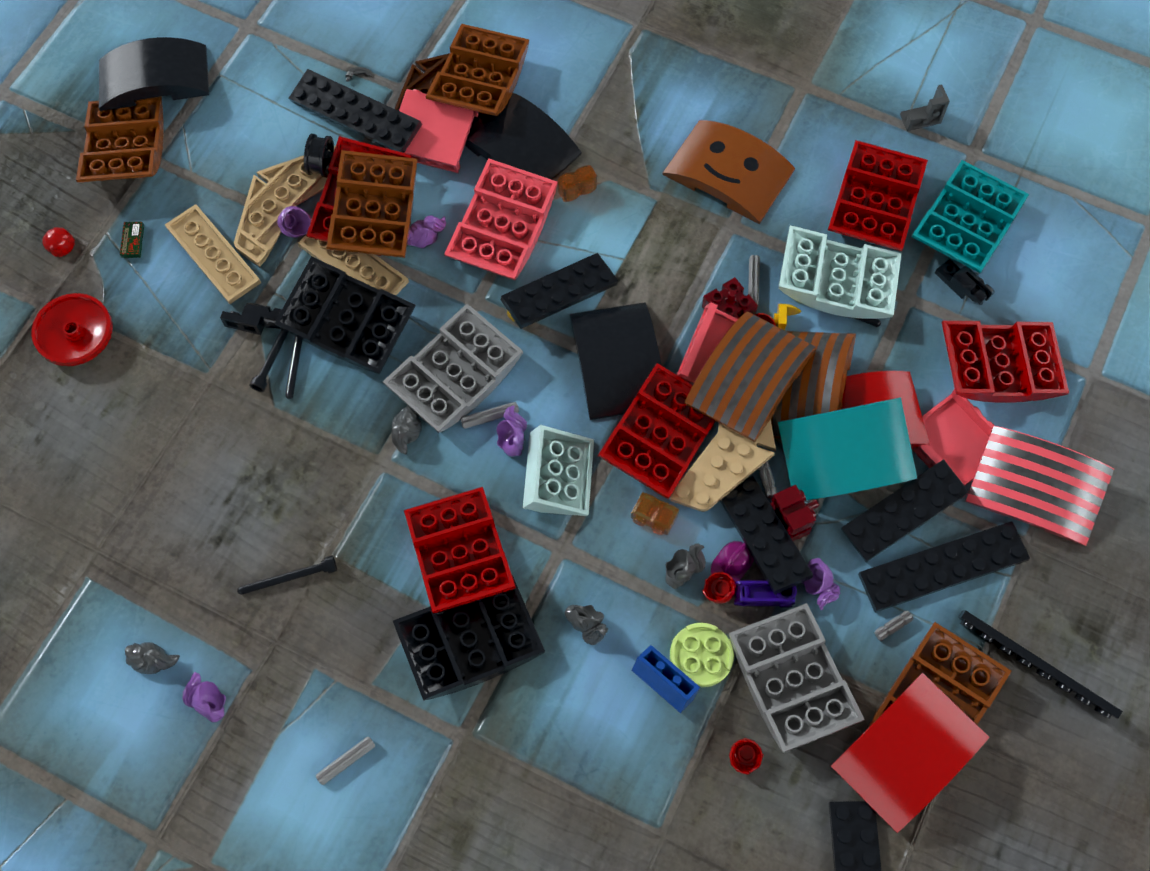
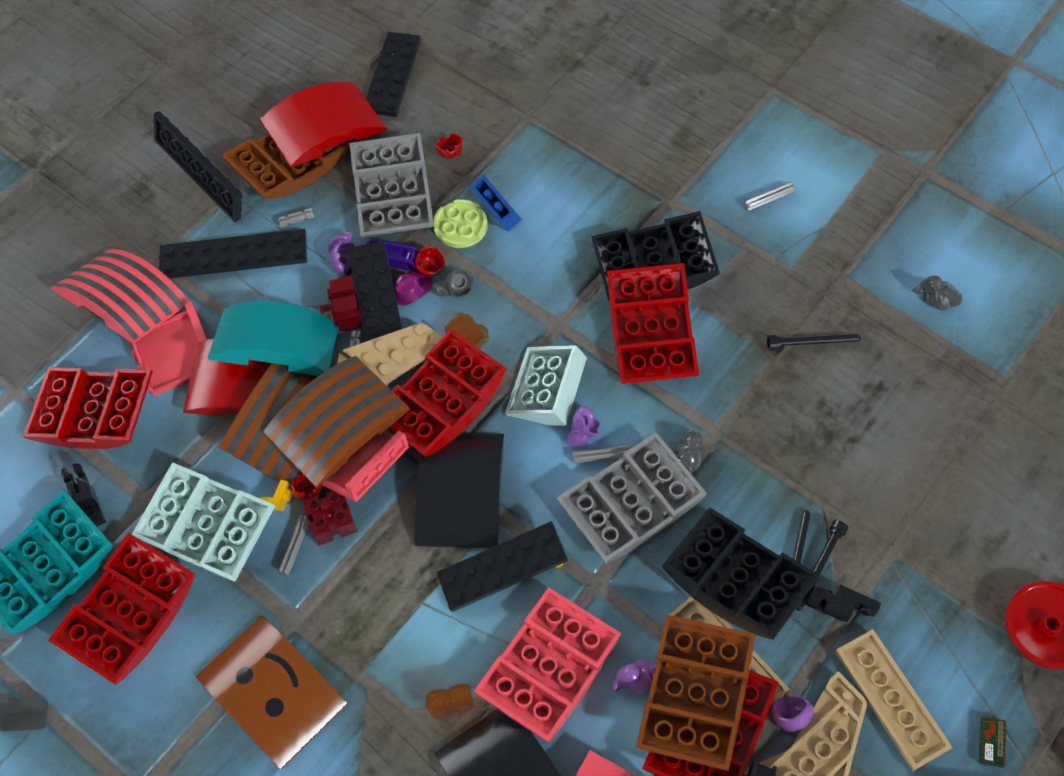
camera: 165 degrees left, 5 degrees down
(204, 698) = (886, 250): medium lavender hair -> none
(588, 622) = (549, 257): dark grey hair -> none
(904, 510) = (209, 301): black plate -> none

